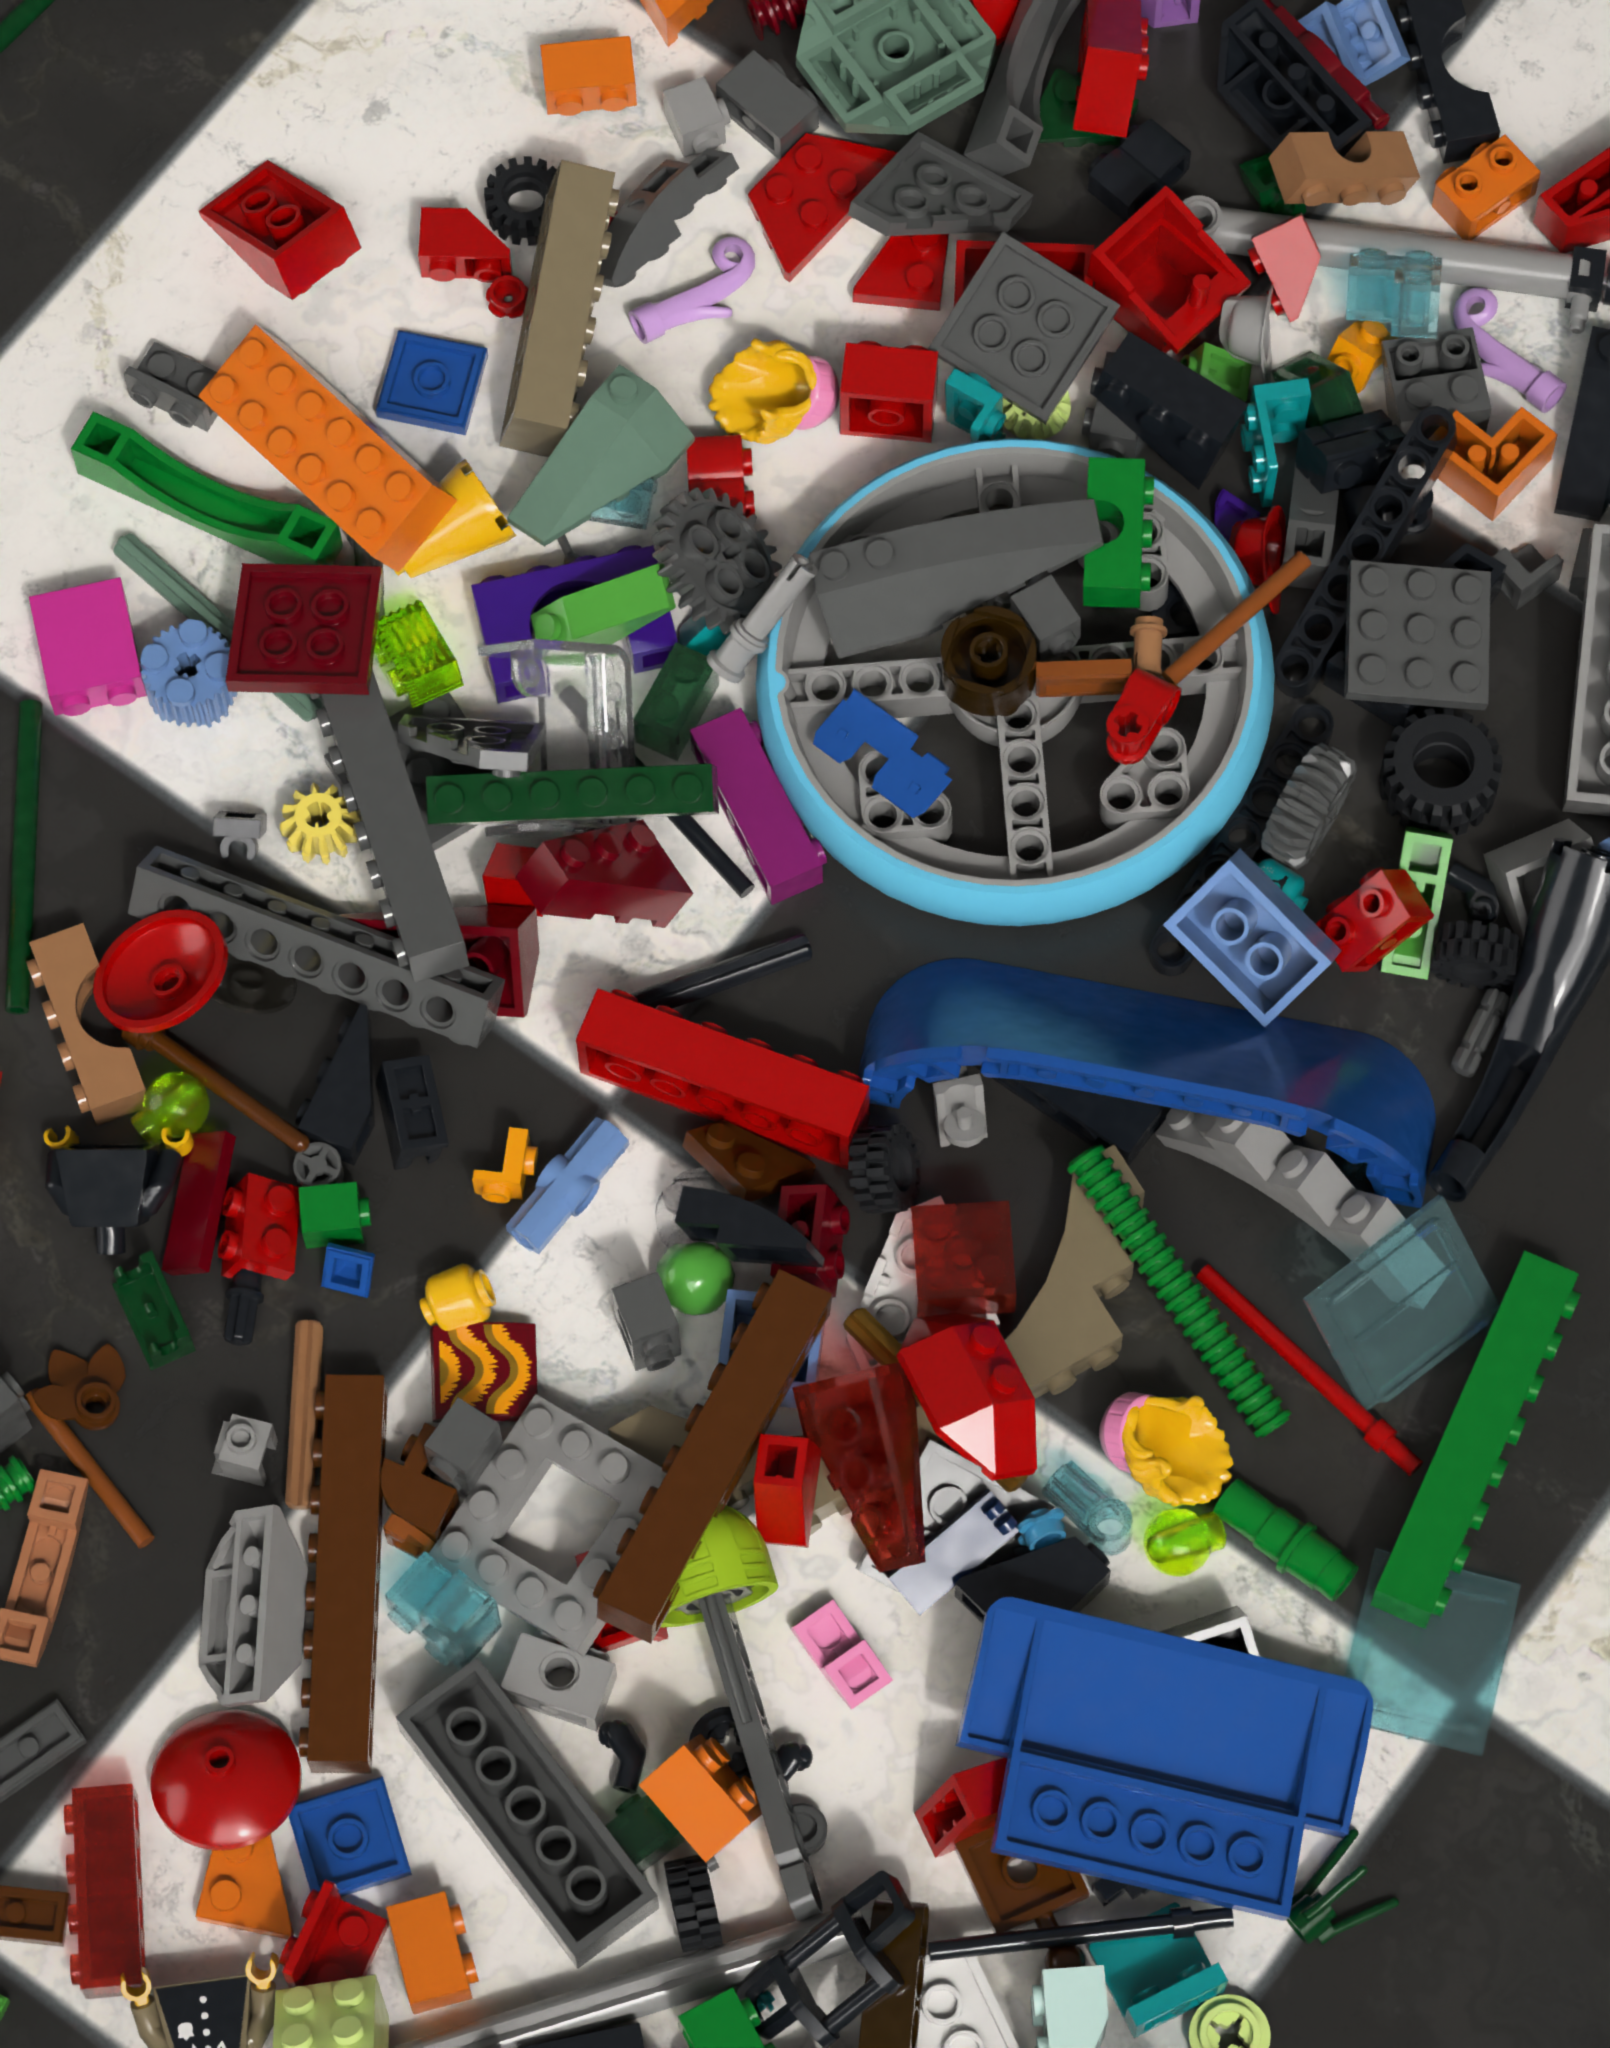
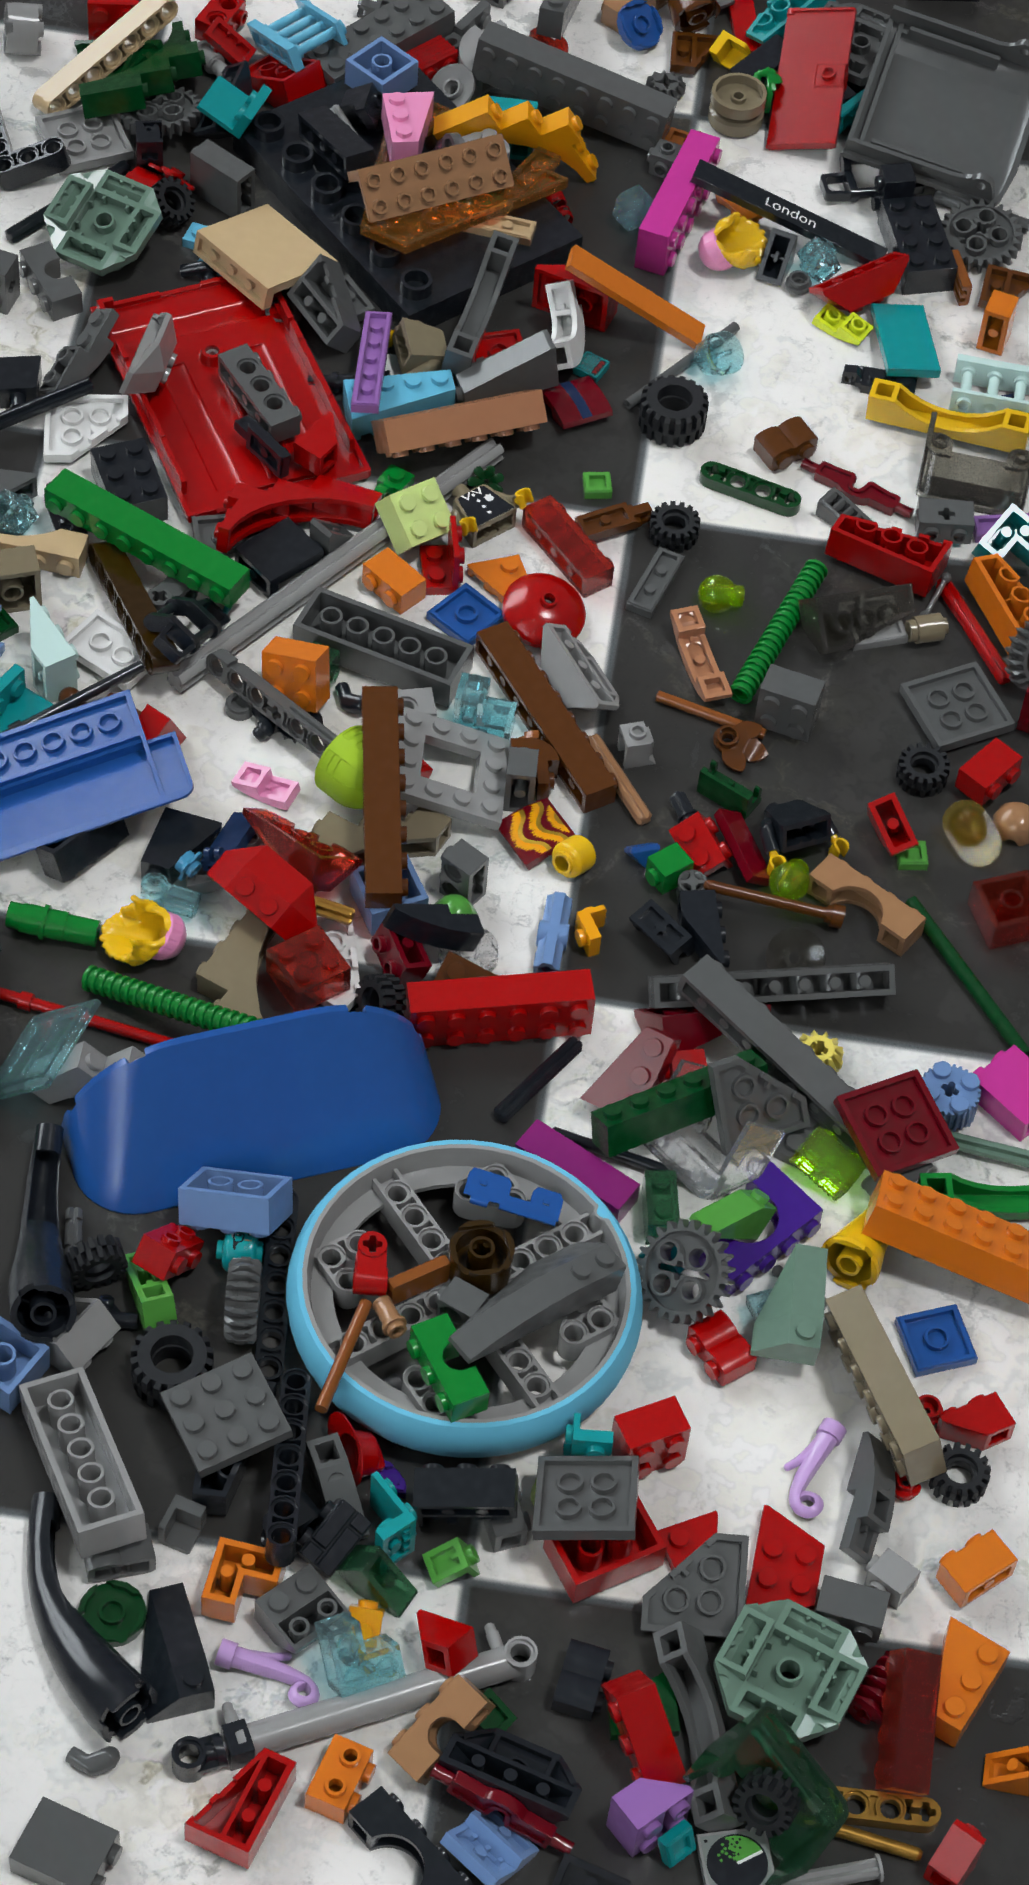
camera: 145 degrees right, 15 degrees down
(160, 971) = (843, 924): red dish -> none
(239, 826) = (860, 1036): tile -> none
(693, 1903) = (267, 628): black tyre -> none
(750, 633) = (634, 1230): light grey pin -> none
(773, 392) = (722, 1410): yellow hair -> none
(786, 1488) = (338, 815): red slope -> none
(1165, 273) = (515, 1583): red piece -> none
(1182, 1540) = (109, 897): clear neon green piece -> none
(1246, 330) = (437, 1580): light grey piece -> none

